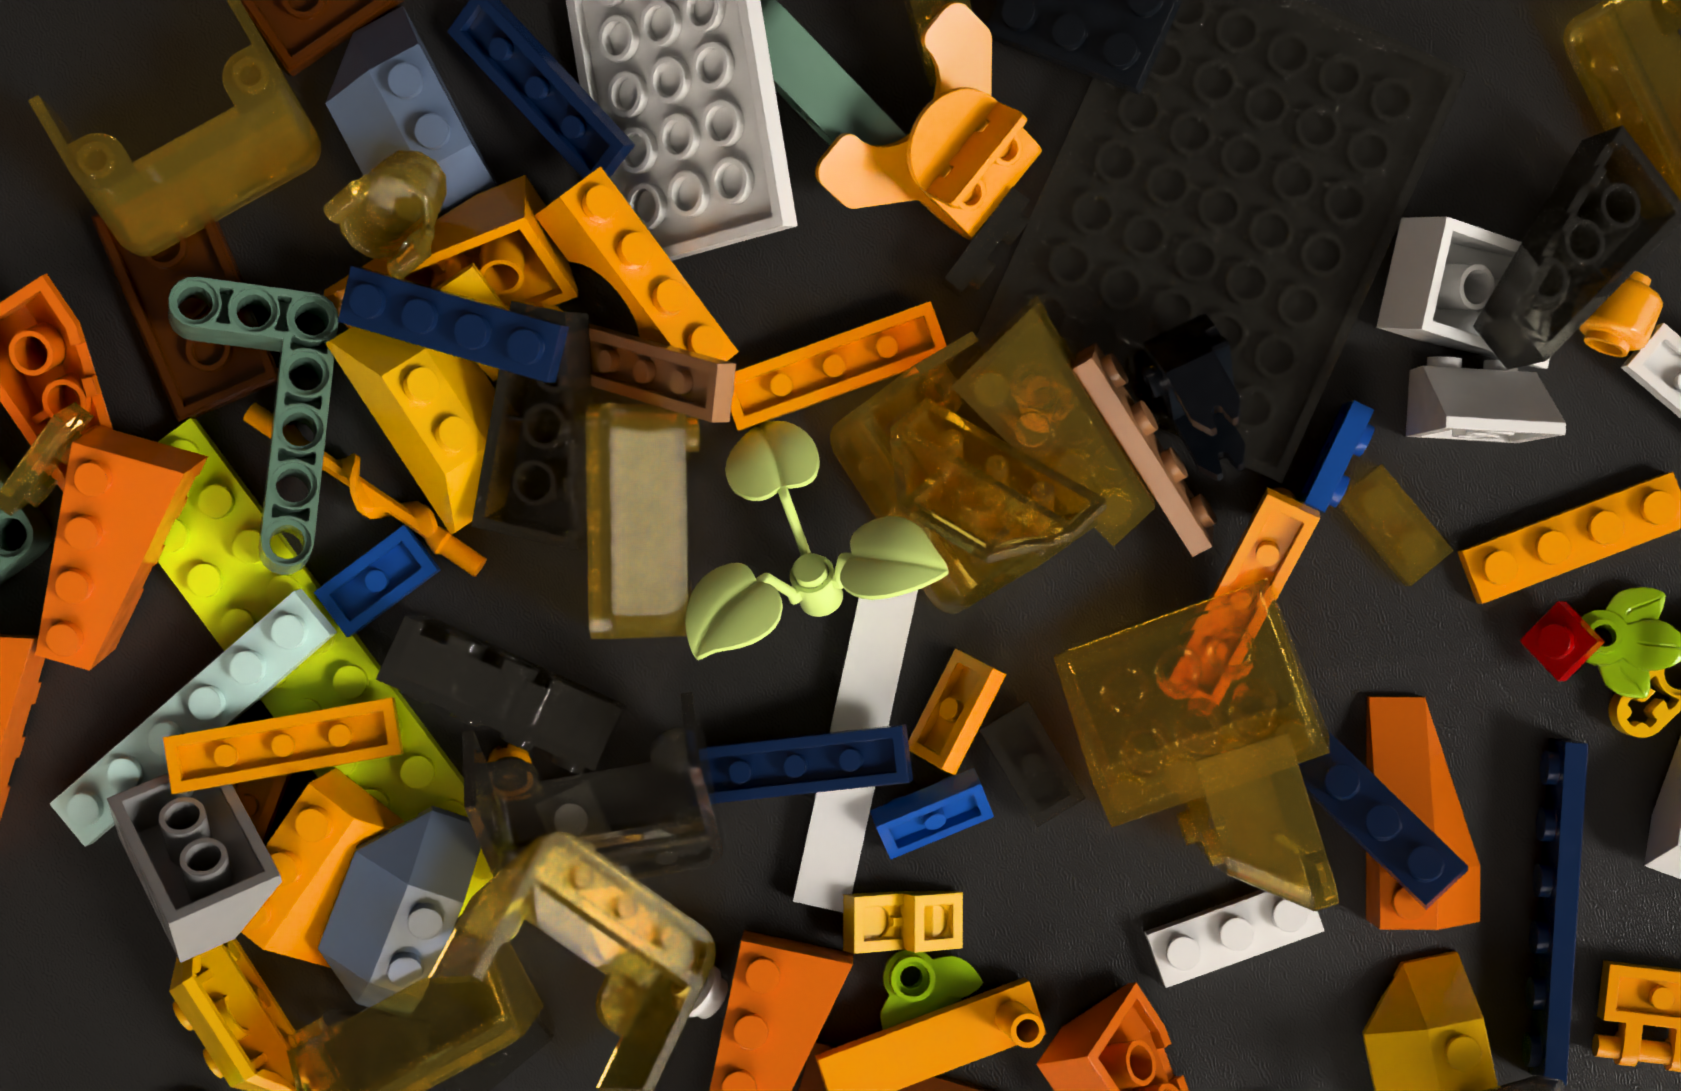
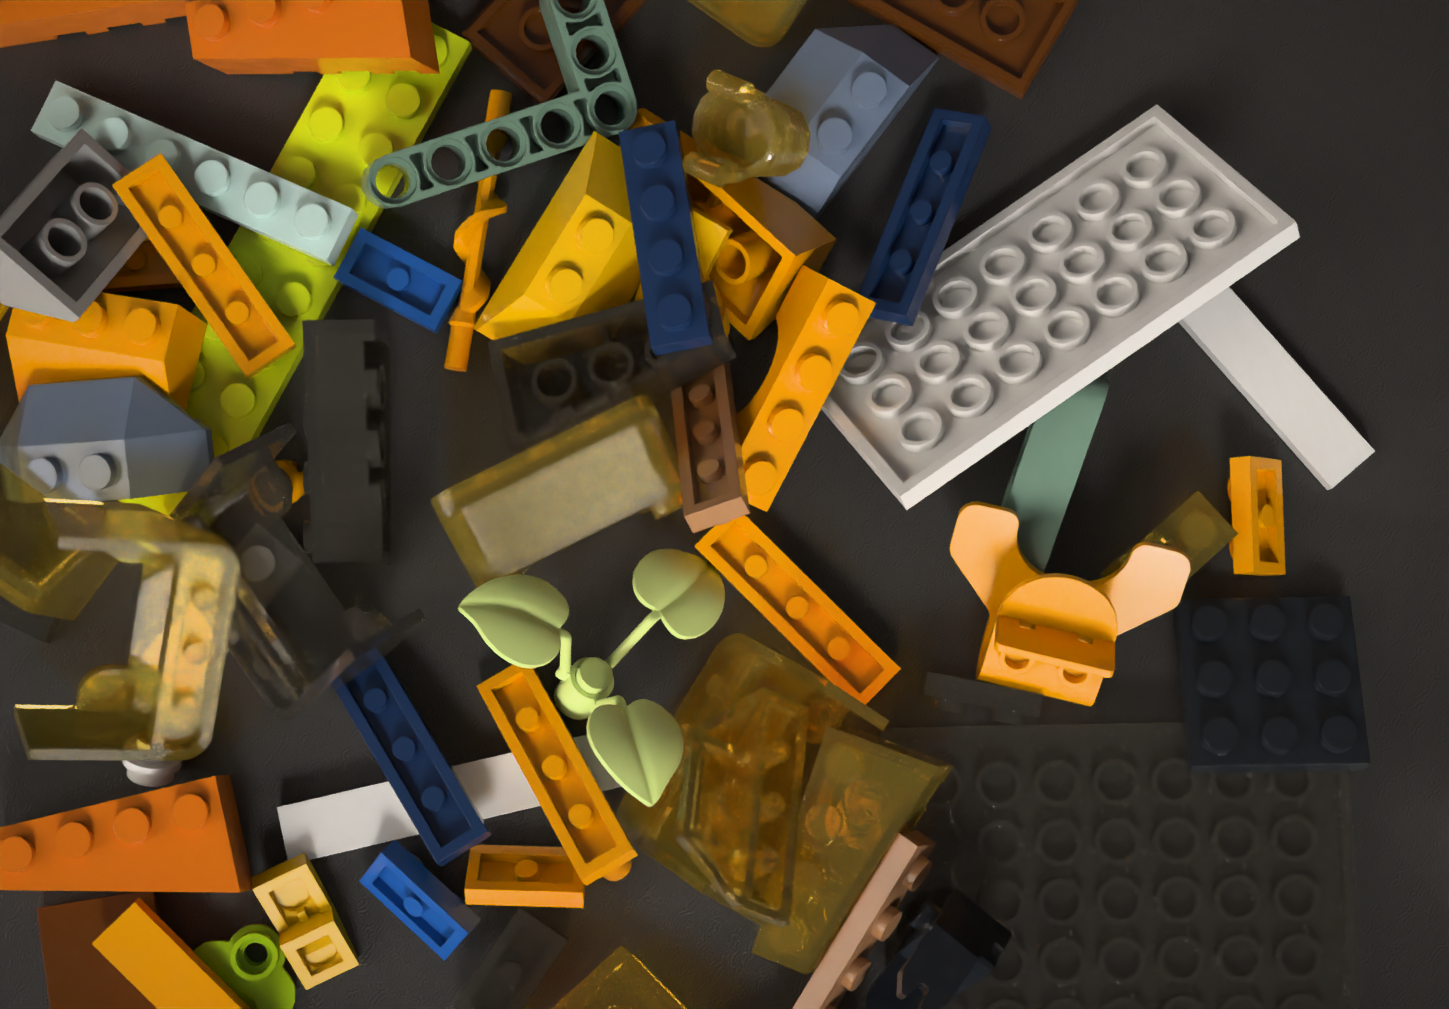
camera: 70 degrees right, 5 degrees down
(880, 642) = (558, 774): none -> light orange piece

